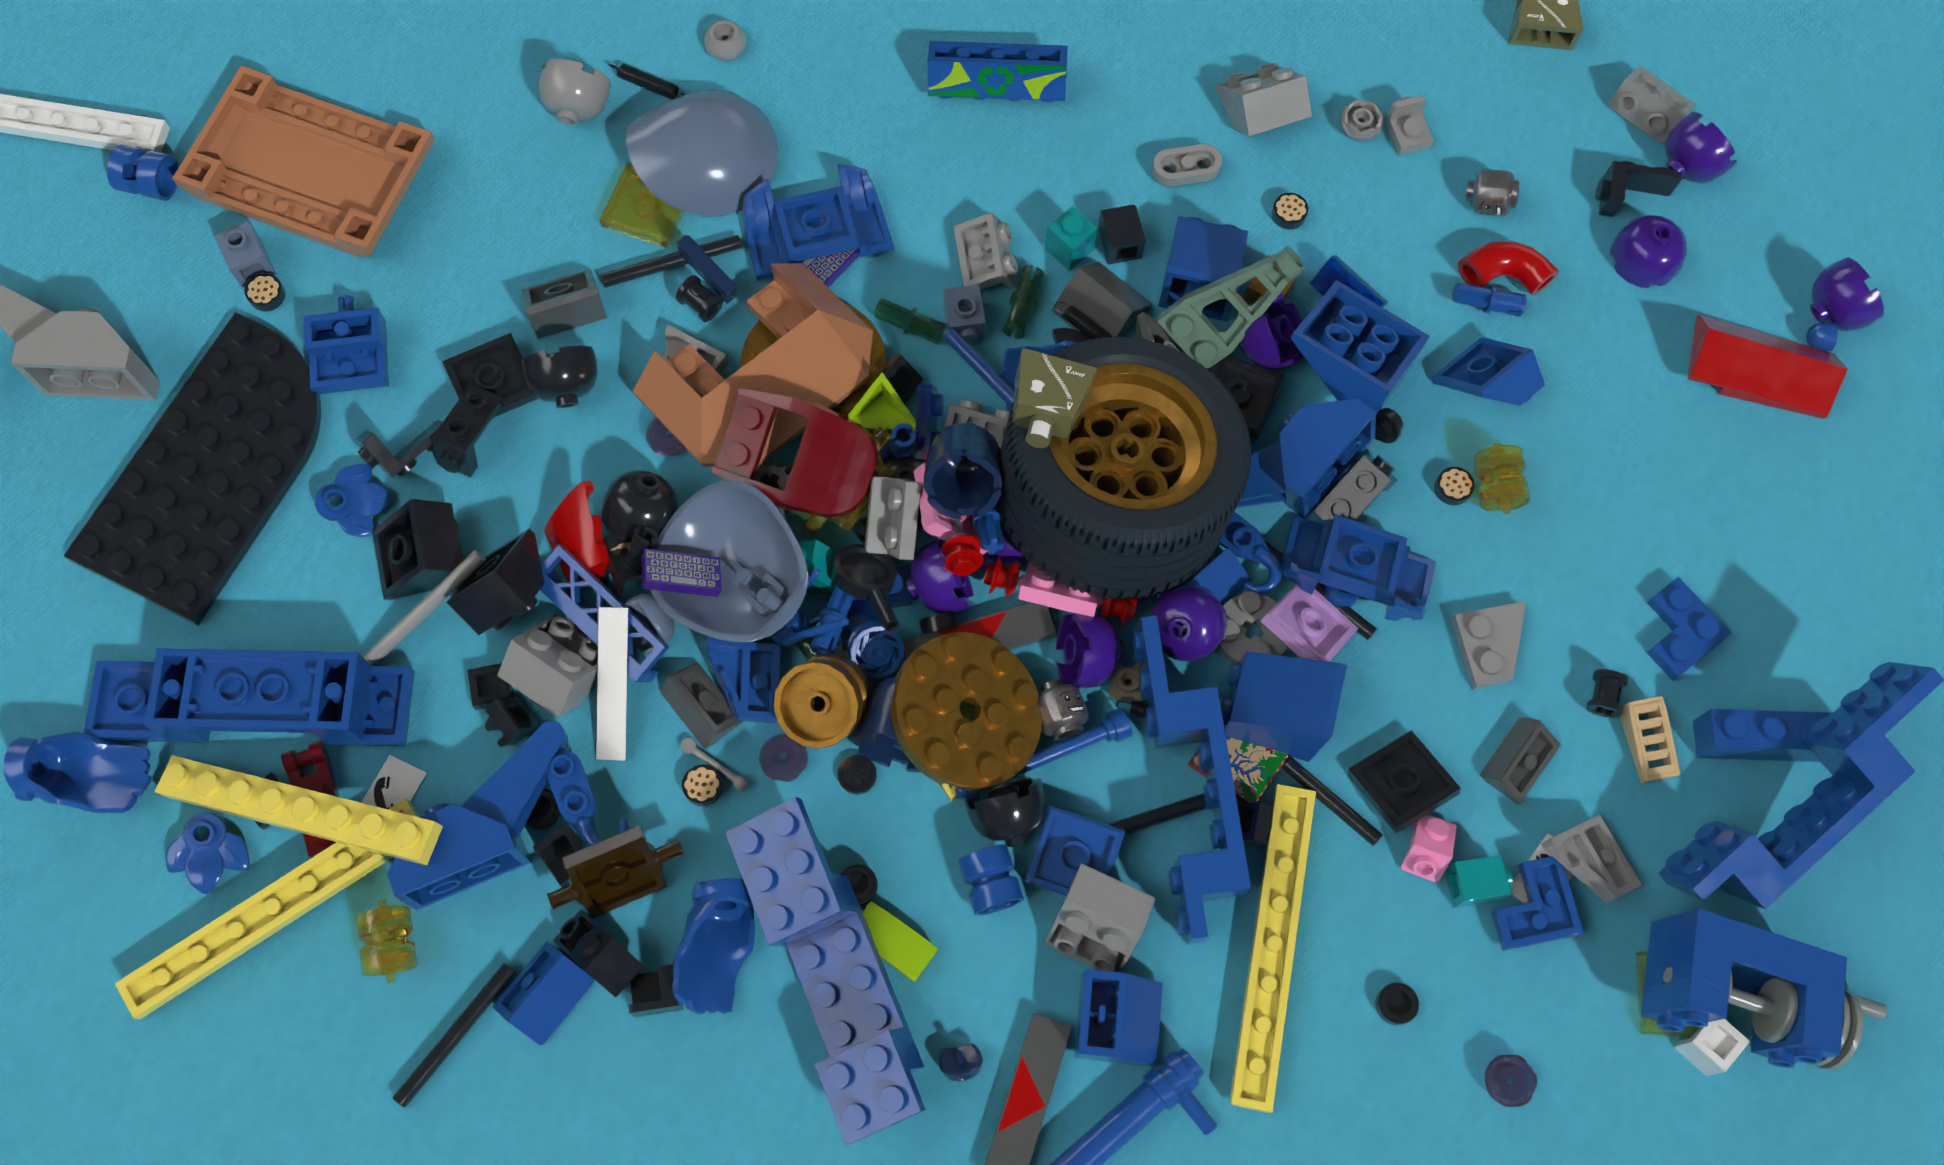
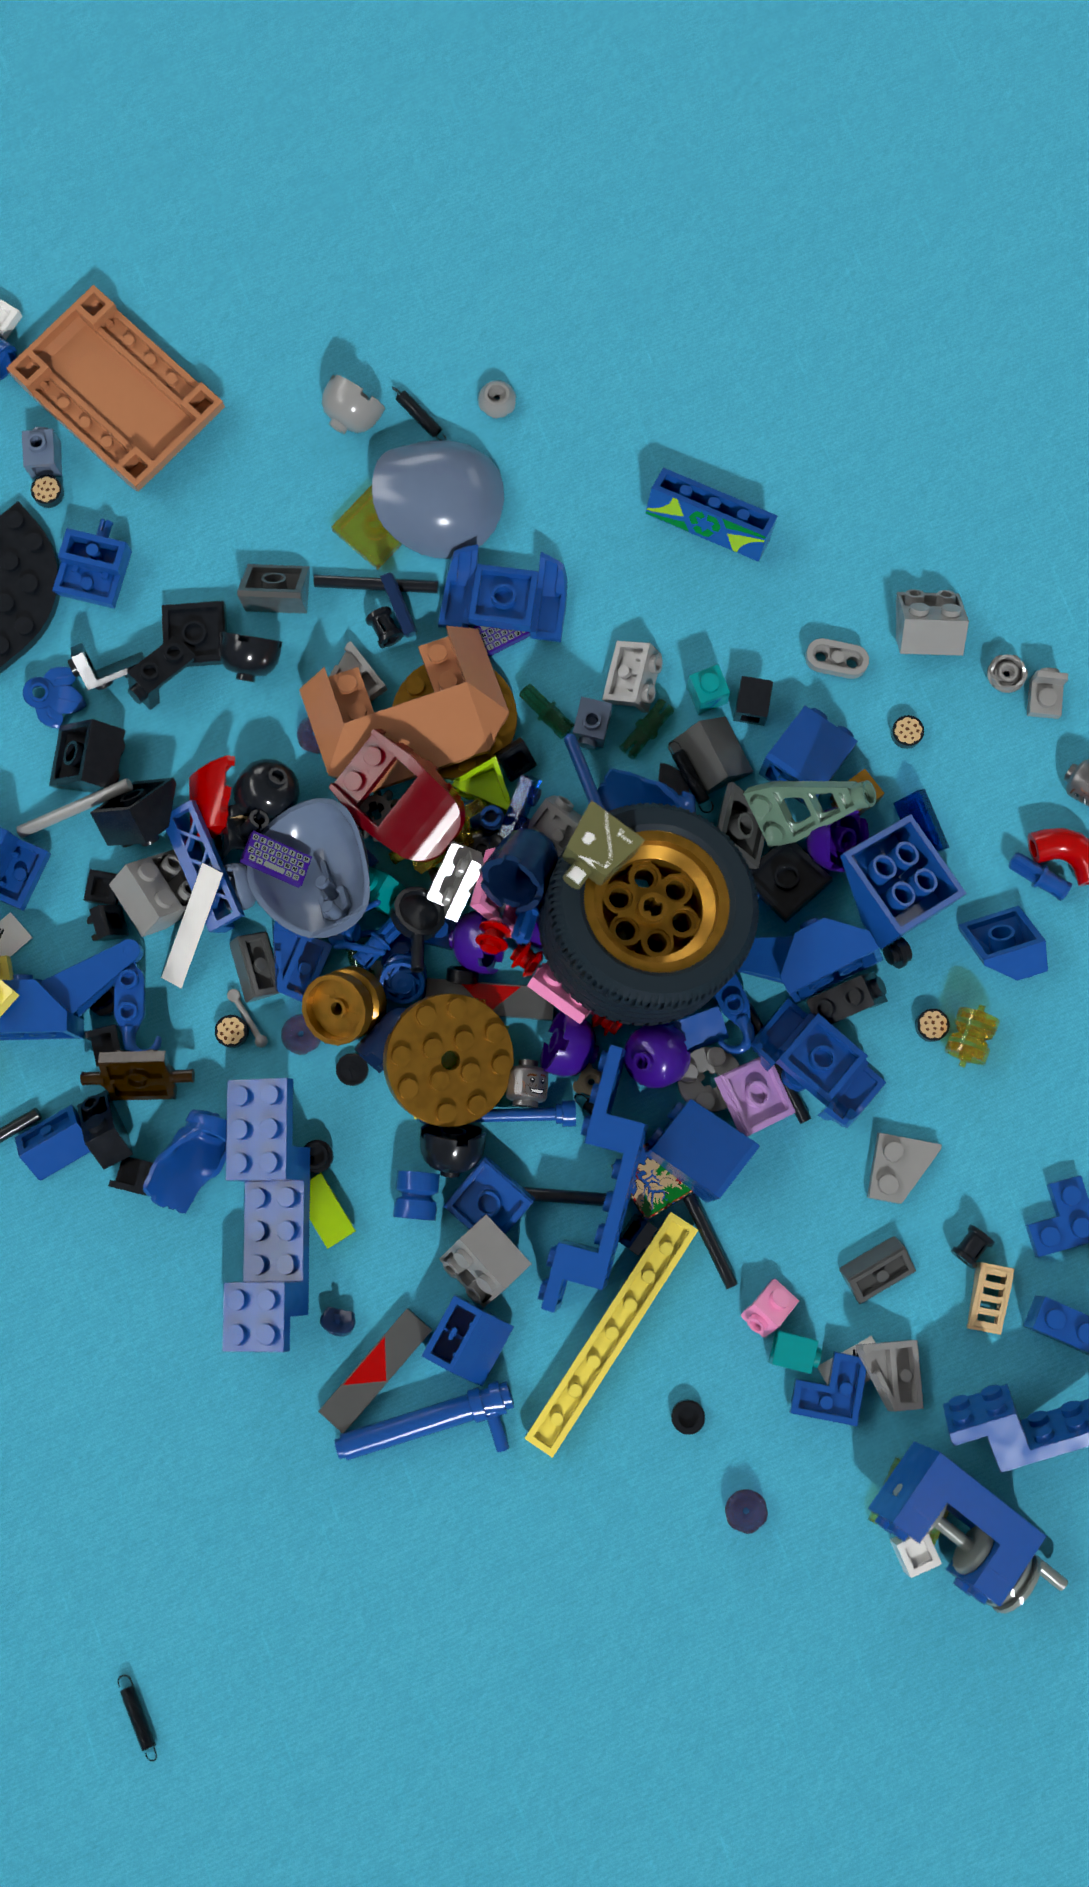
camera: 30 degrees right, 10 degrees up
(1403, 781) = (773, 1250): black plate -> none

